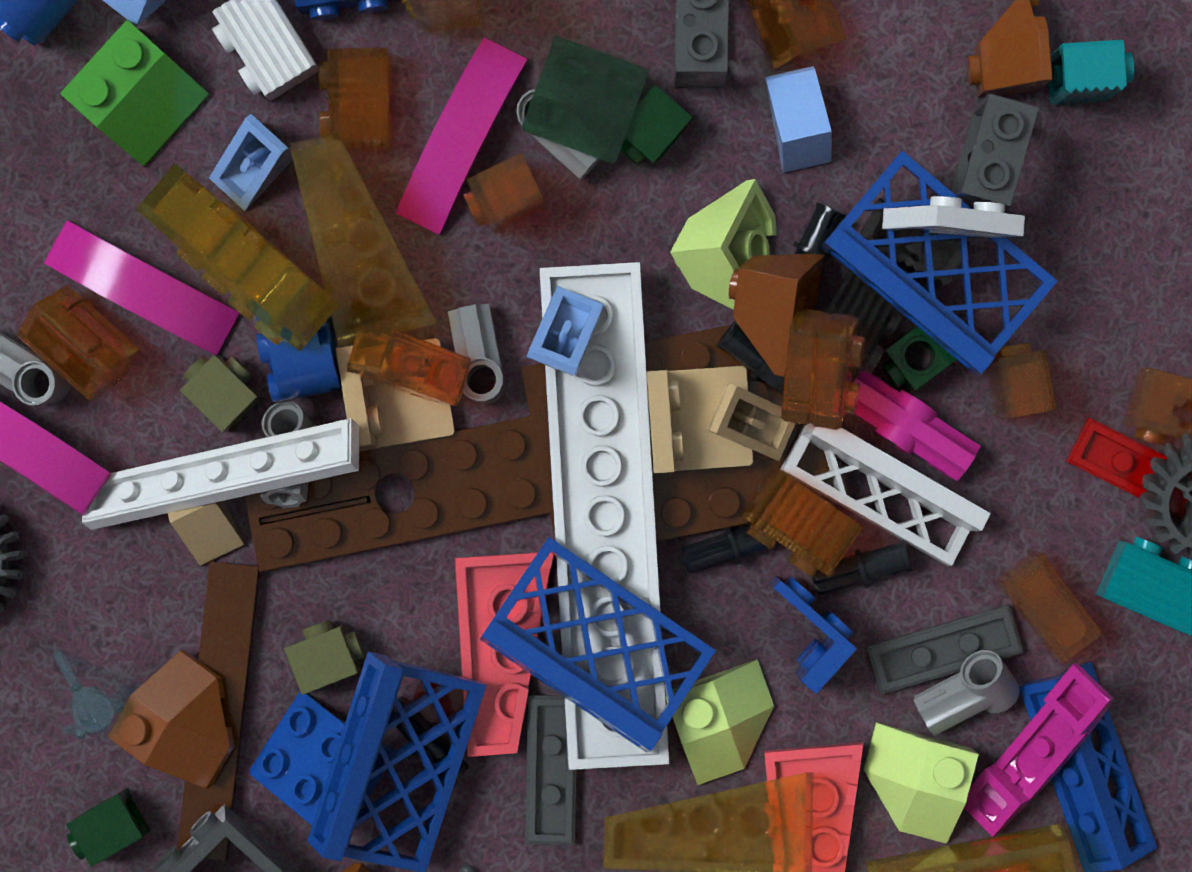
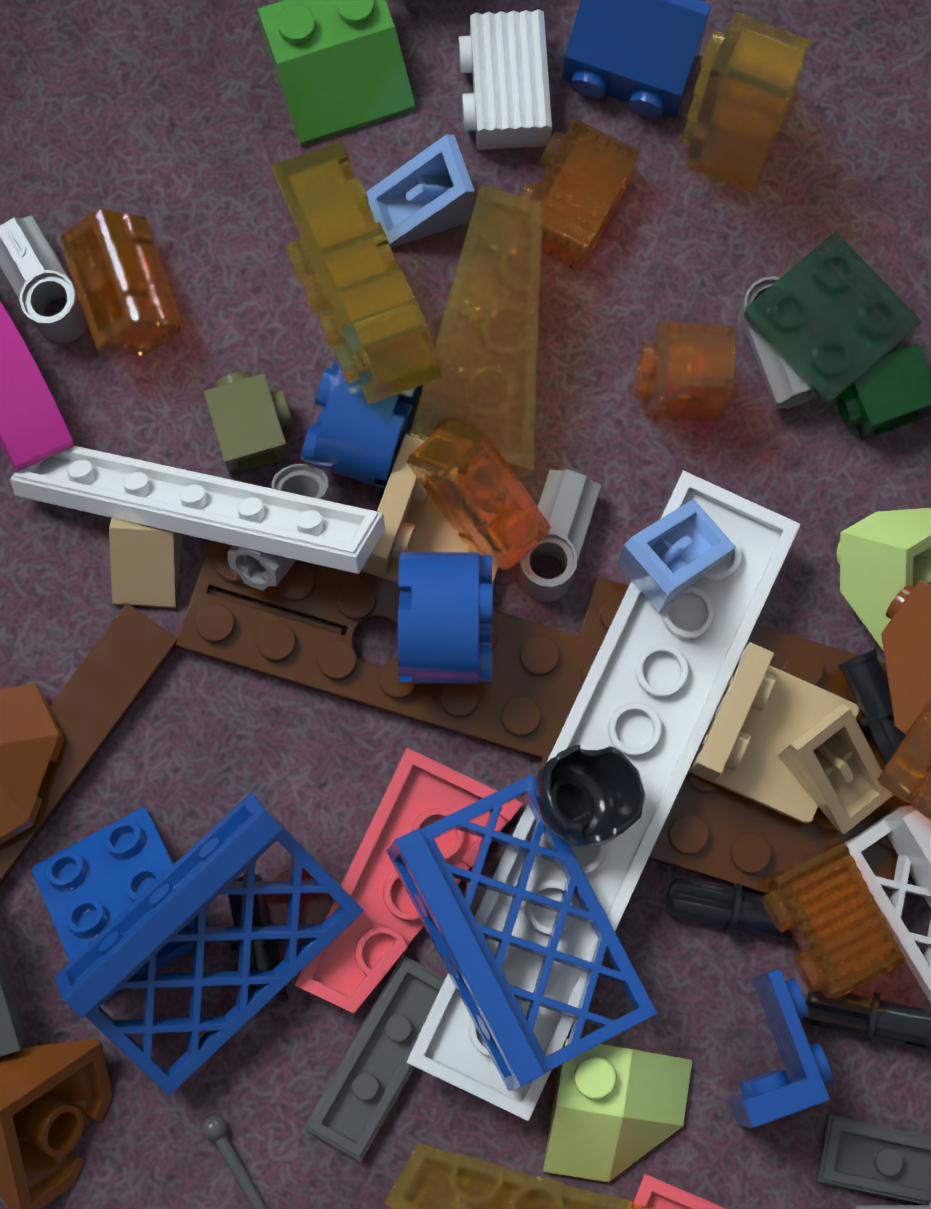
camera: 25 degrees right, 10 degrees down
(141, 288) = (226, 269): dark pink slope -> none
(325, 656) = (195, 778): olive brick -> none
(432, 463) = (445, 618): none -> blue brick
(460, 135) = (664, 291): dark pink slope -> none
(594, 533) = (589, 795): none -> black hair

